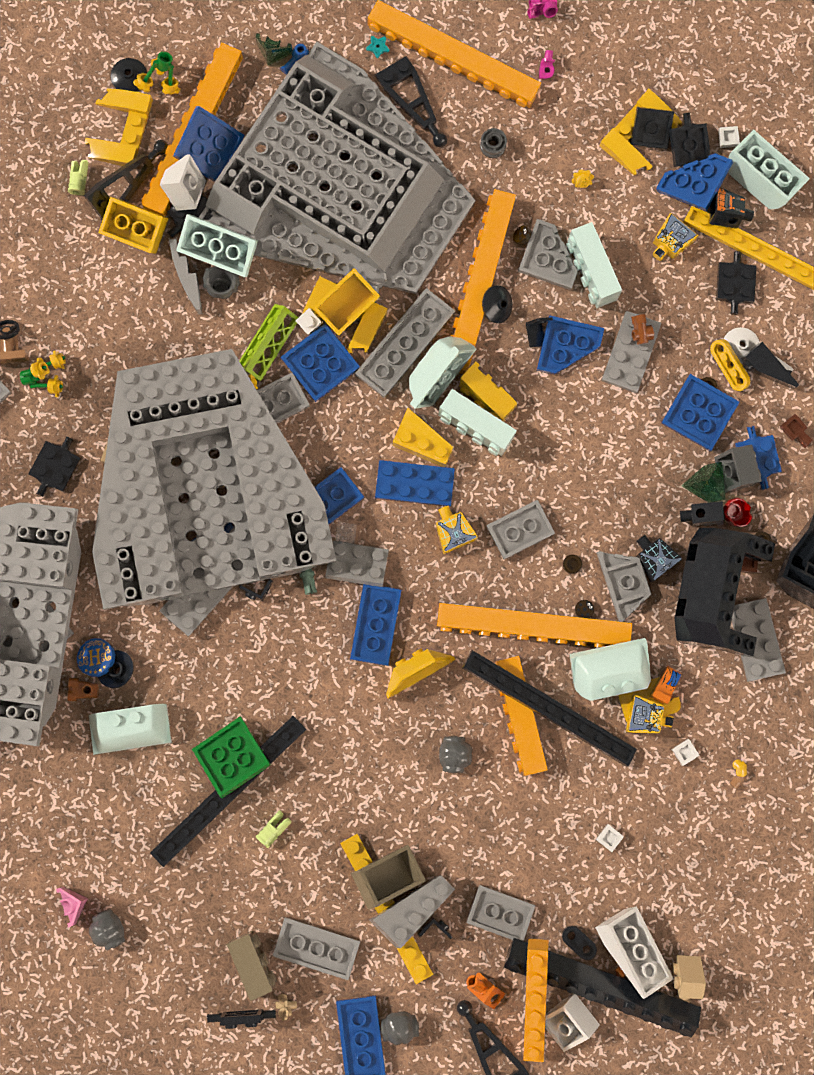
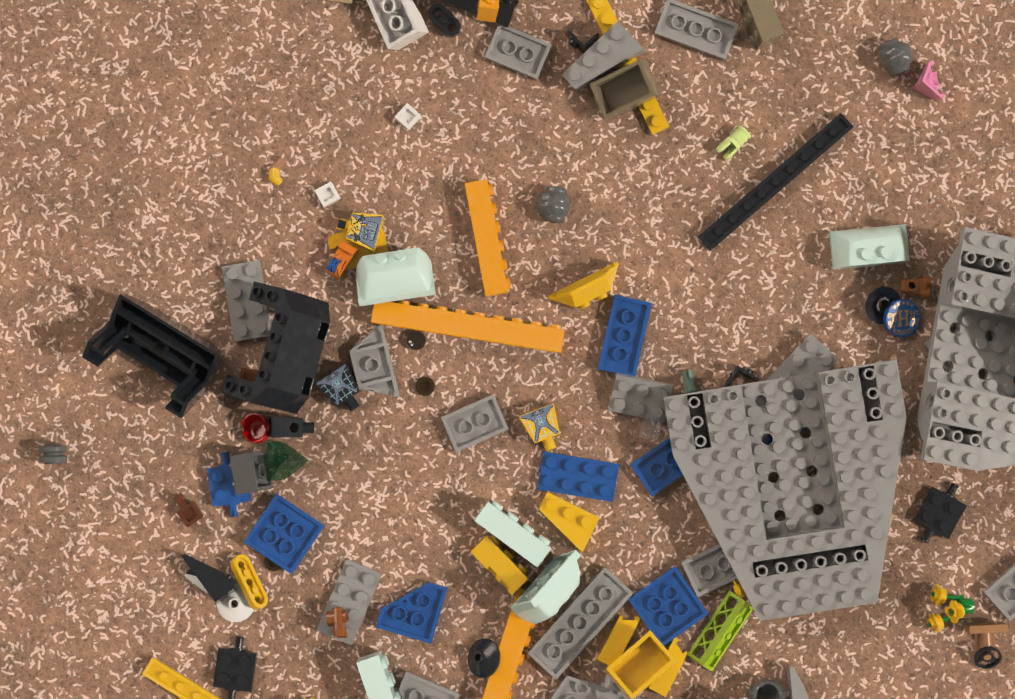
camera: 175 degrees left, 5 degrees up
(231, 757) = (772, 213): green plate -> none
(309, 321) = (678, 649): white plate -> none
(535, 331) = (446, 626): black bracket -> none
(549, 708) = (459, 242): black plate -> none

